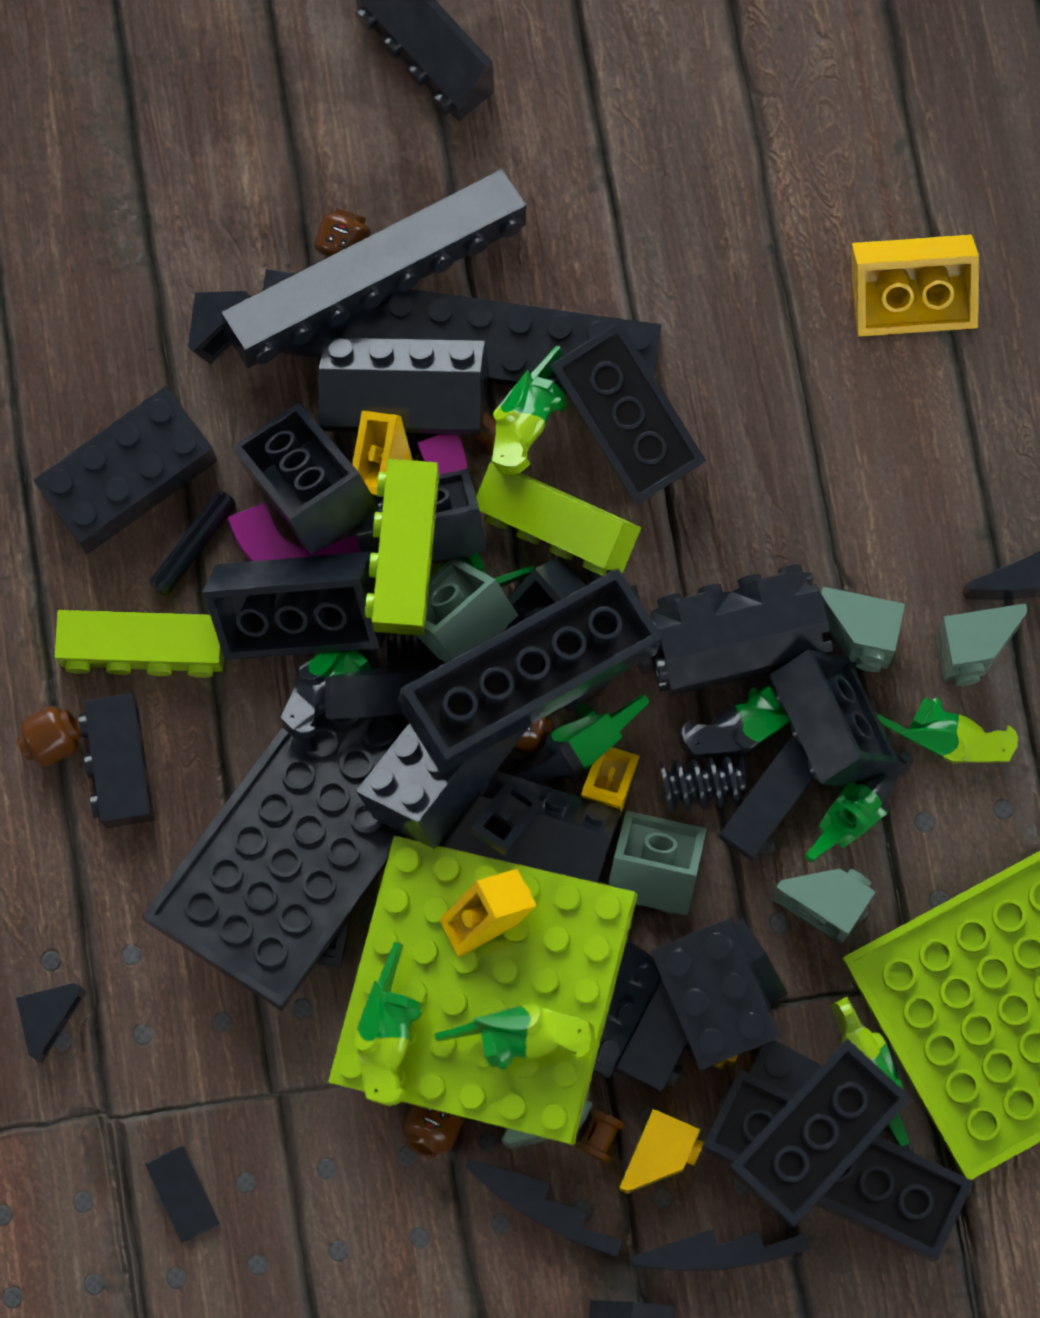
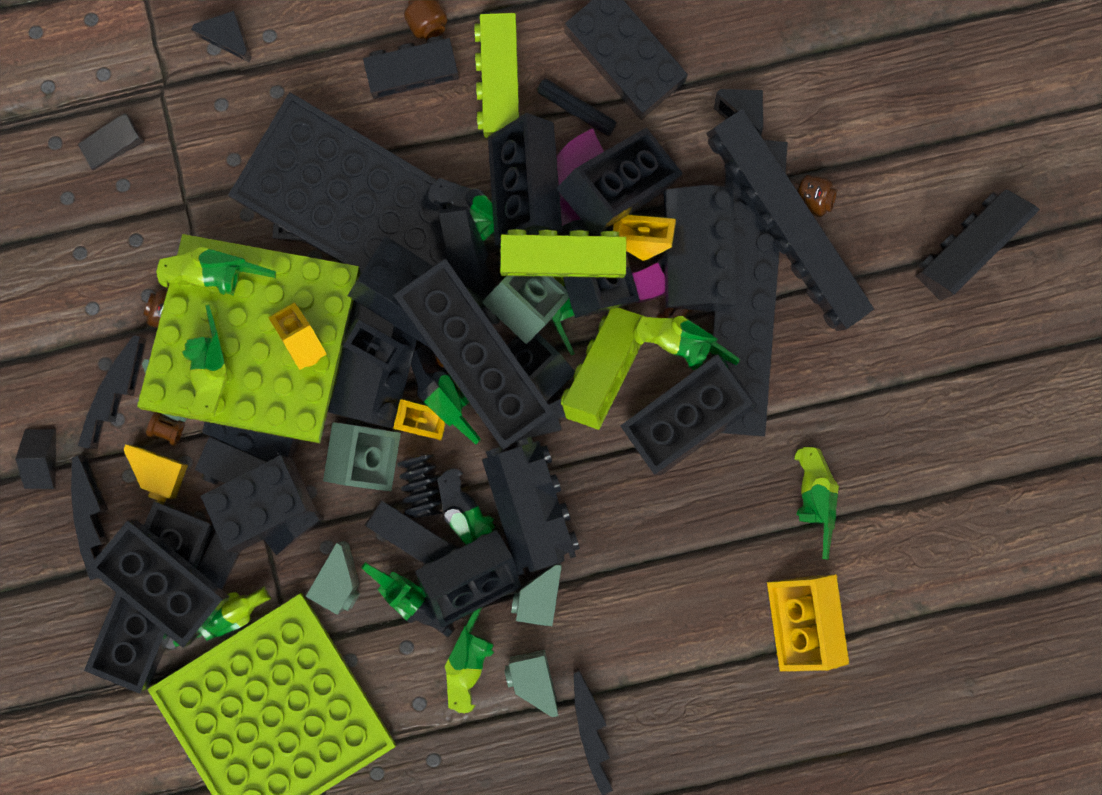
camera: 85 degrees right, 10 degrees up
(741, 261) = (818, 493): none -> animal

